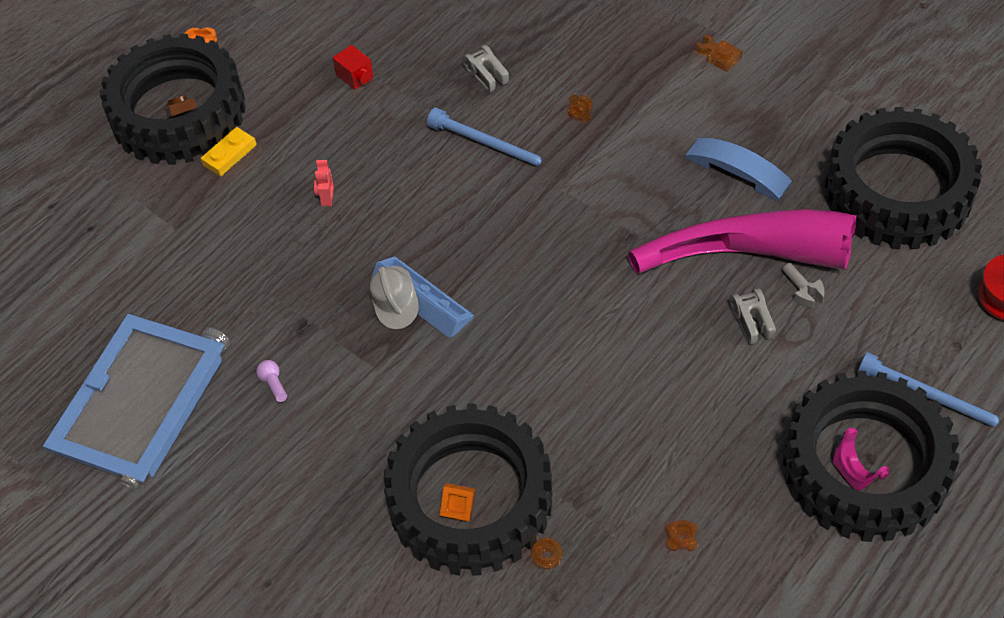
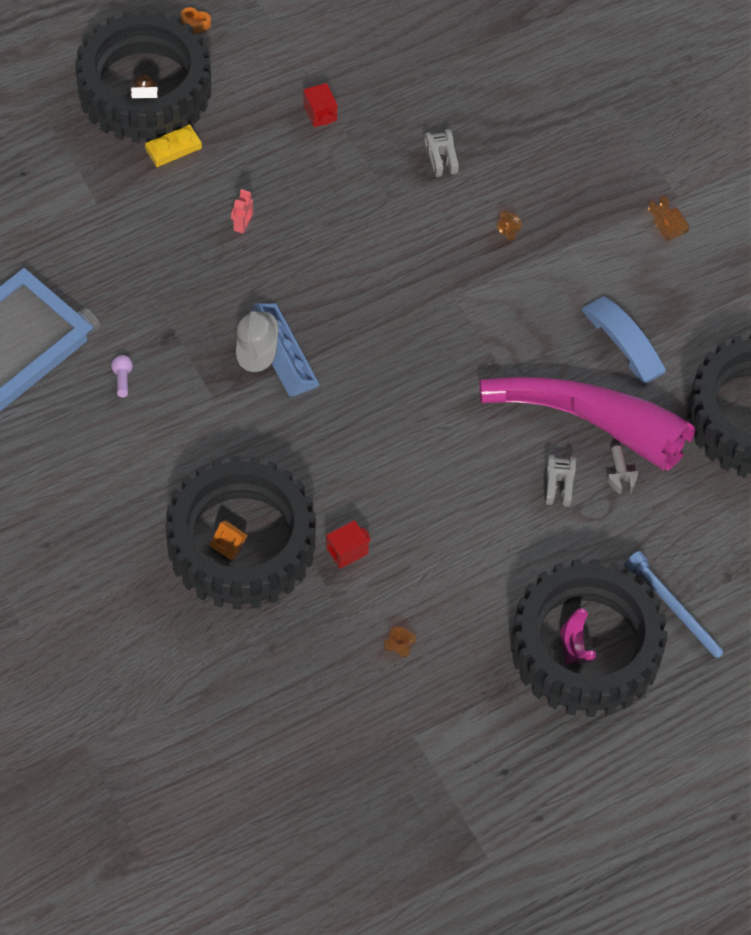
camera: 15 degrees right, 5 degrees up
(439, 120) = (375, 188): medium blue piece -> none
(547, 545) = (282, 604): clear orange plate -> none
(580, 458) = (348, 544): none -> red brick

